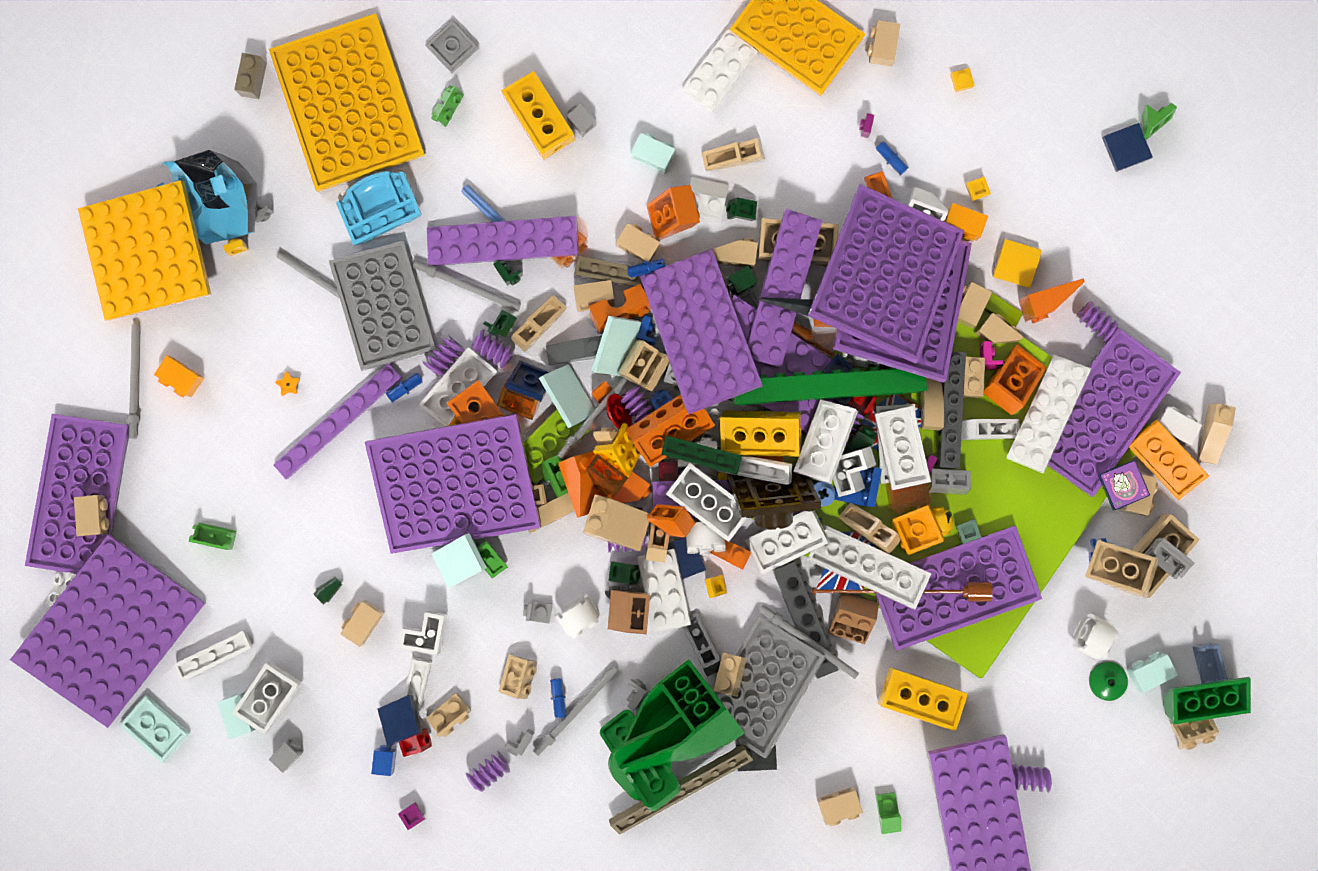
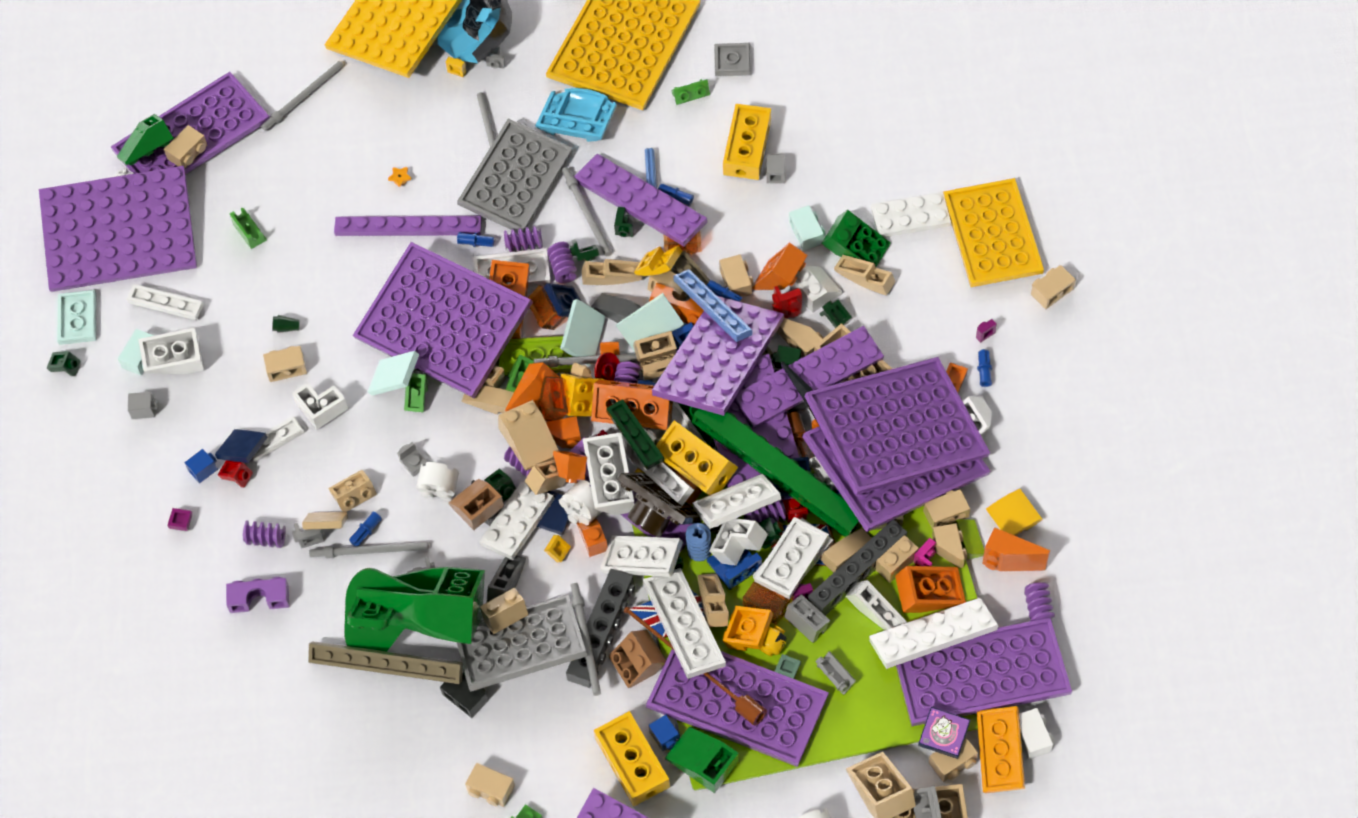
camera: 50 degrees right, 25 degrees down
(52, 542) = (144, 139): none -> green slope
(178, 376) = (334, 114): light orange brick -> none
(187, 776) = (65, 362): none -> dark green bracket
(448, 714) = (277, 476): tan bracket -> none
(522, 211) = (681, 196): none -> blue axle
(525, 721) = (325, 520): none -> tan tile
(543, 807) = (240, 593): none -> medium lavender arch
(569, 284) = (658, 261): none -> yellow slope
(653, 290) = (712, 305): none -> medium blue tile
(700, 131) = (855, 239): none -> green slope
(706, 235) = (788, 303): none -> red bracket
(925, 657) = (664, 733): none -> blue brick
(962, 80) = (1092, 358): yellow plate -> none
(967, 220) = (1002, 454): light orange brick -> none
(973, 654) = (703, 758): none -> green slope
(978, 189) = (1032, 438): yellow plate -> none
(1001, 504) = (835, 672): none -> light grey hinge
(1127, 147) = (1183, 503): dark blue tile -> none
(1154, 120) = (1225, 500): bright green slope -> none
(1215, 432) = (1062, 765): tan slope -> none

